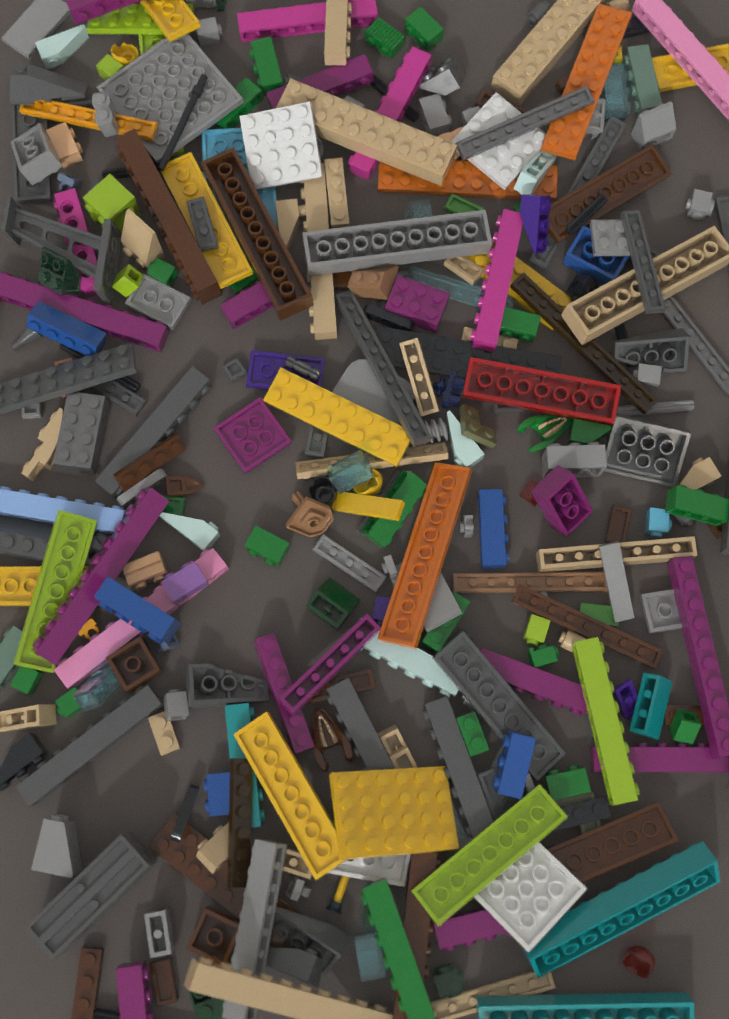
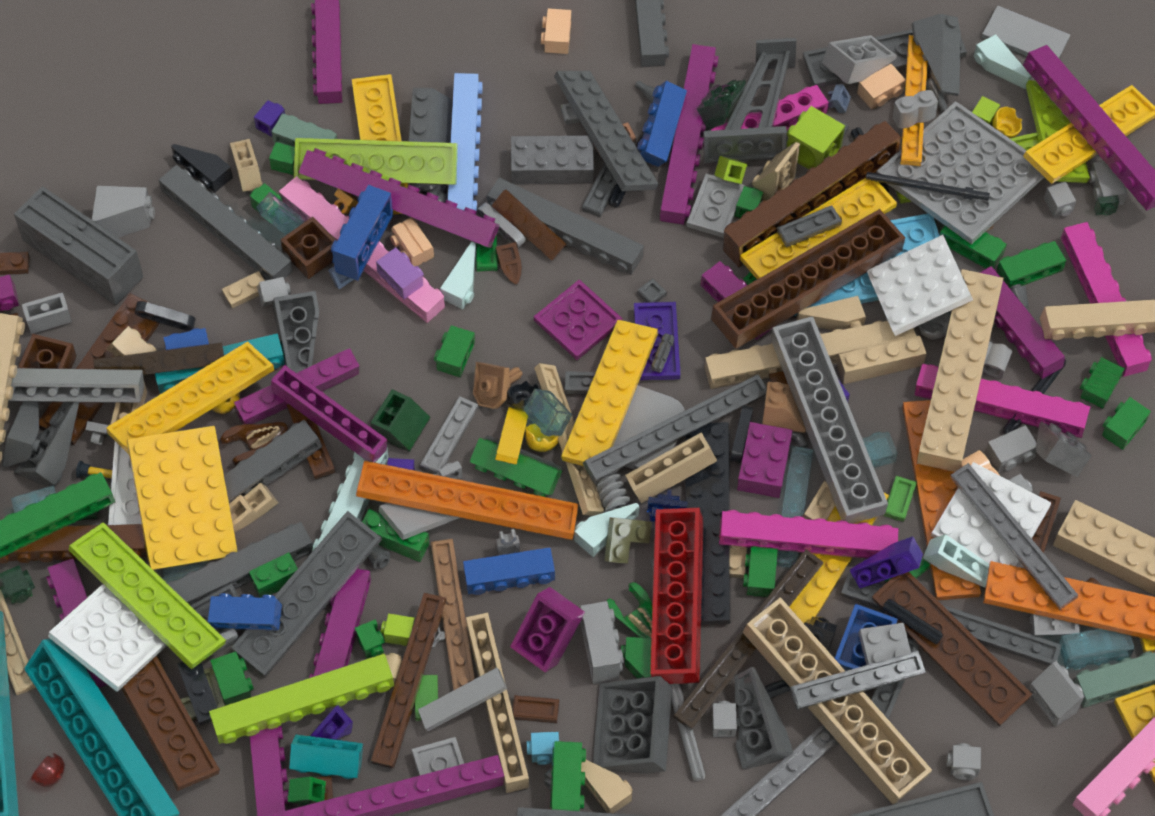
camera: 80 degrees right, 15 degrees down
(45, 453) = (515, 127): tan slope -> none

